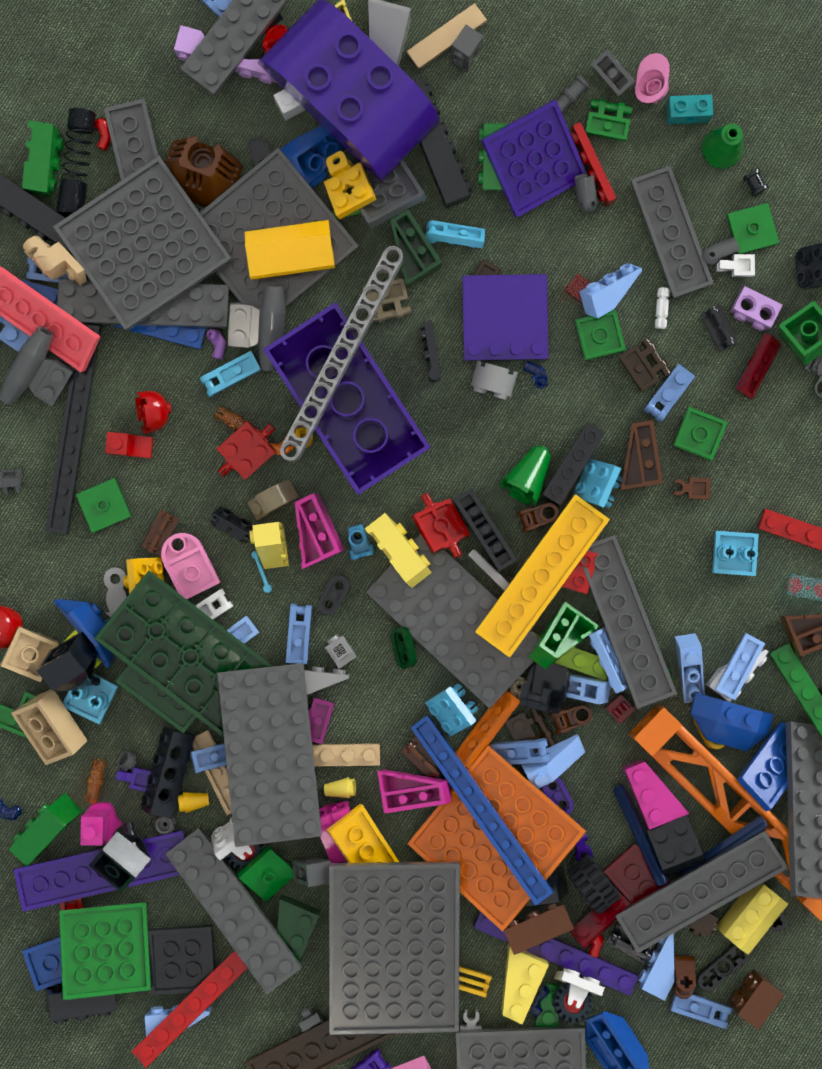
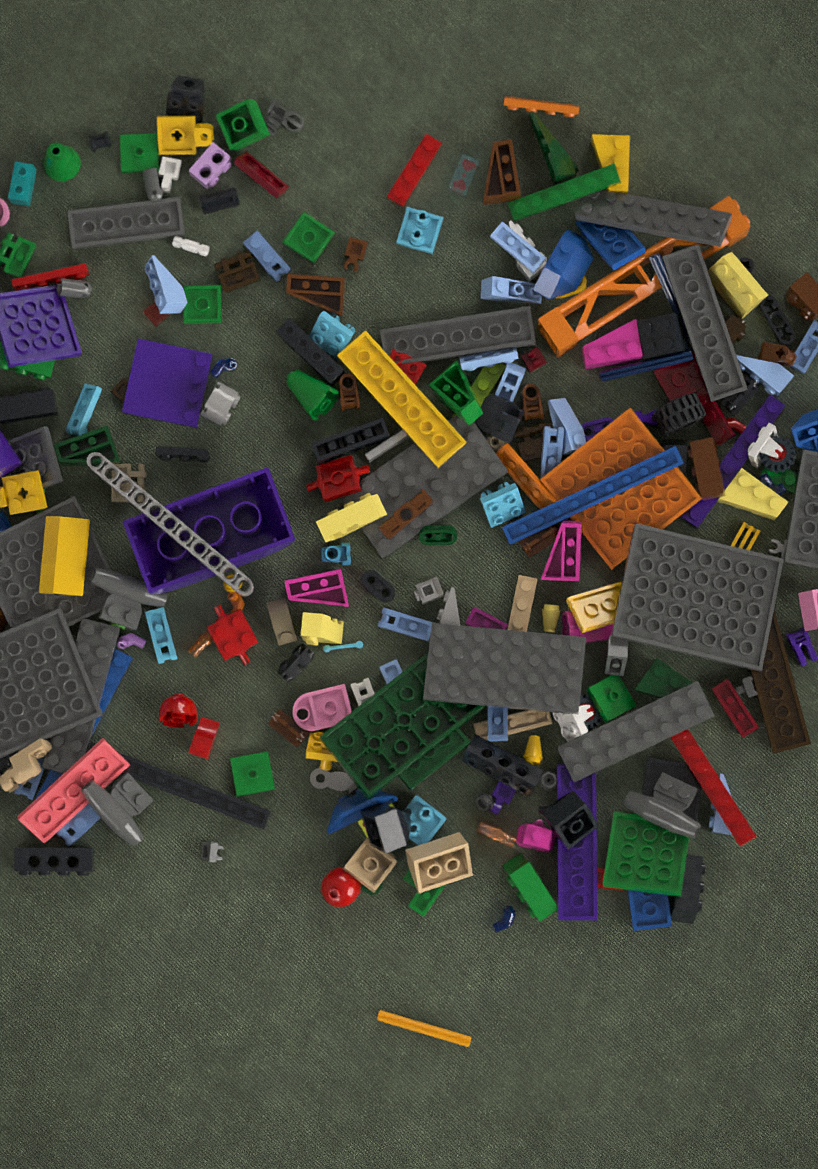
camera: 75 degrees left, 5 degrees down
(159, 961) = (666, 807): none -> dark grey plate
(285, 1009) = (735, 708): none -> dark red plate
(428, 617) = (416, 506): none -> reddish brown piece
(784, 280) = (191, 135): none -> yellow plate

